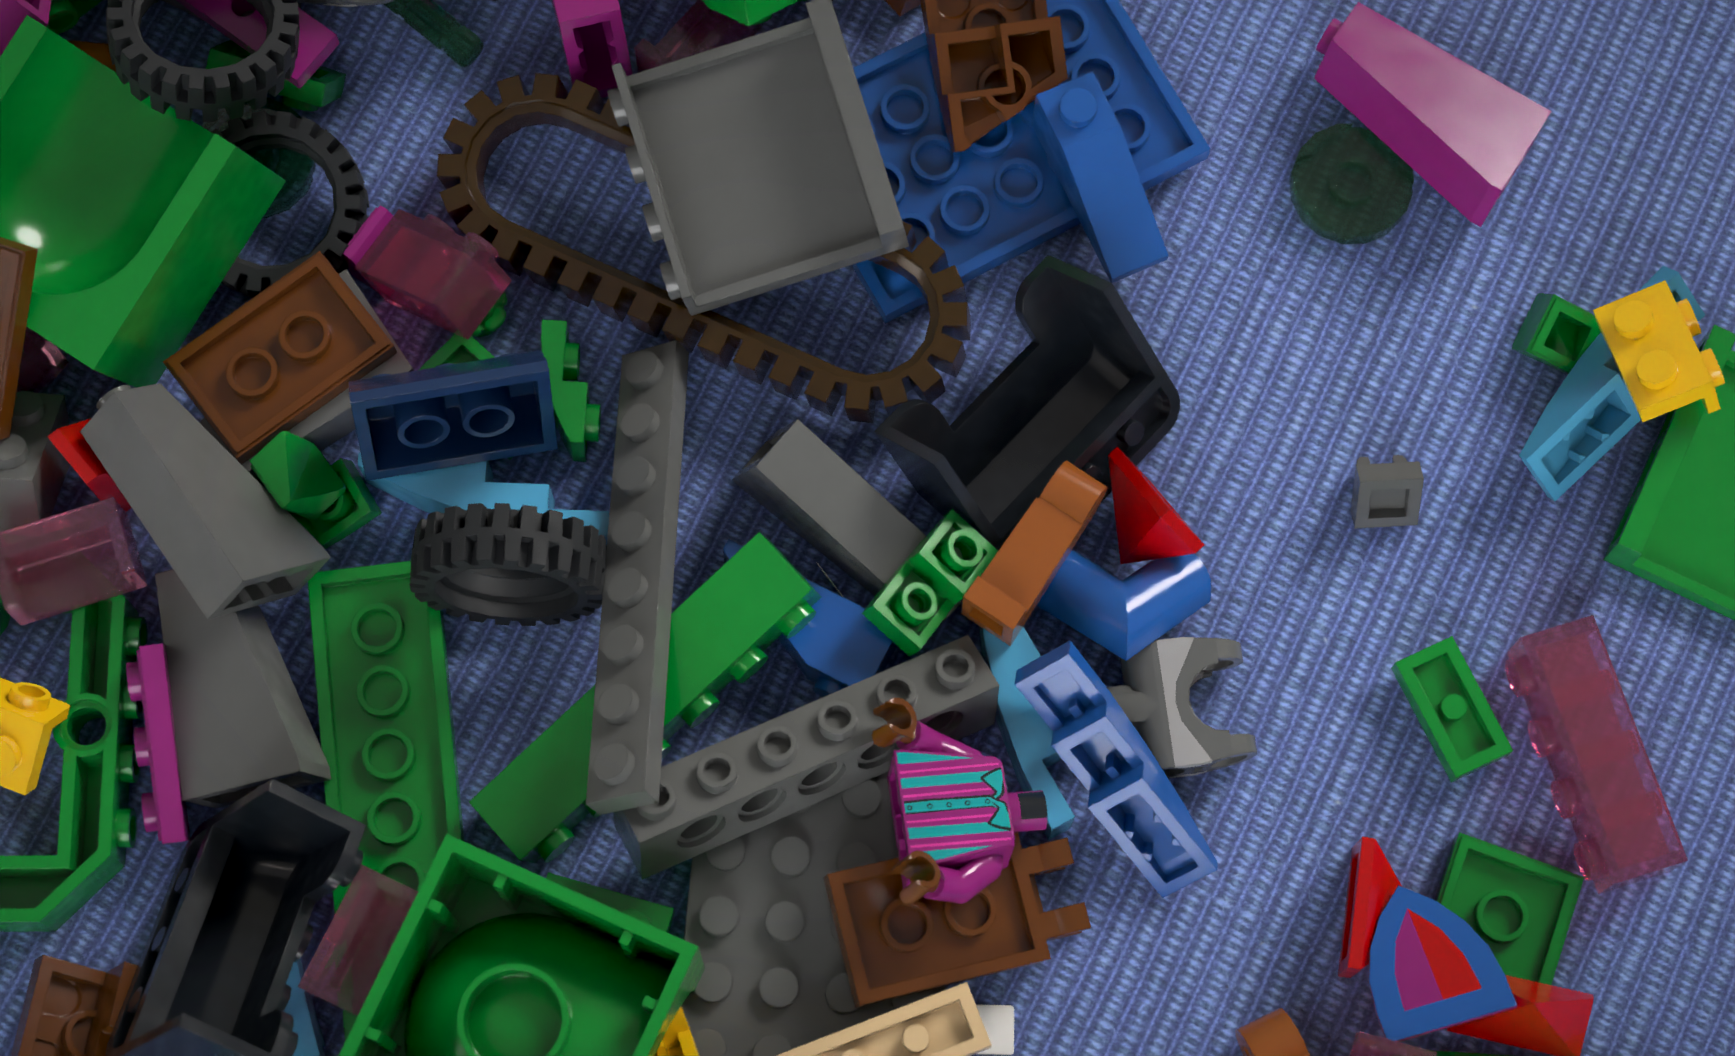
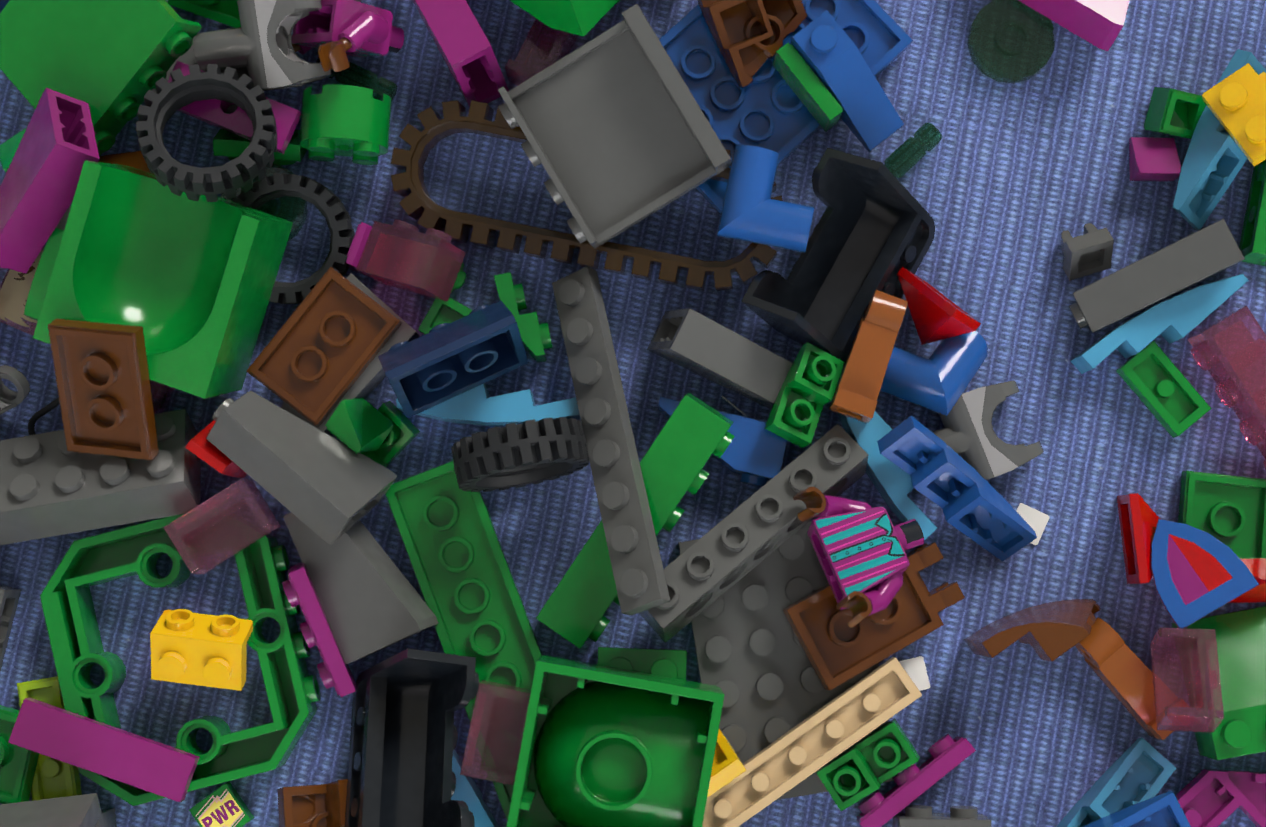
camera: 10 degrees left, 10 degrees up
(396, 72) = (345, 123): none -> green brick
(919, 311) = (750, 211): none -> blue brick
(1044, 171) = (807, 86): none -> green tile
(1174, 298) = (913, 150): none -> clear green axle
(1184, 998) = (1046, 627): none -> reddish brown slope
(1226, 853) = (1035, 519): none -> white sticker
(1474, 547) = (1156, 277): none -> dark grey slope
(1483, 608) = (1169, 318): none -> dark azure slope
(1513, 391) = (1153, 159): none -> magenta slope

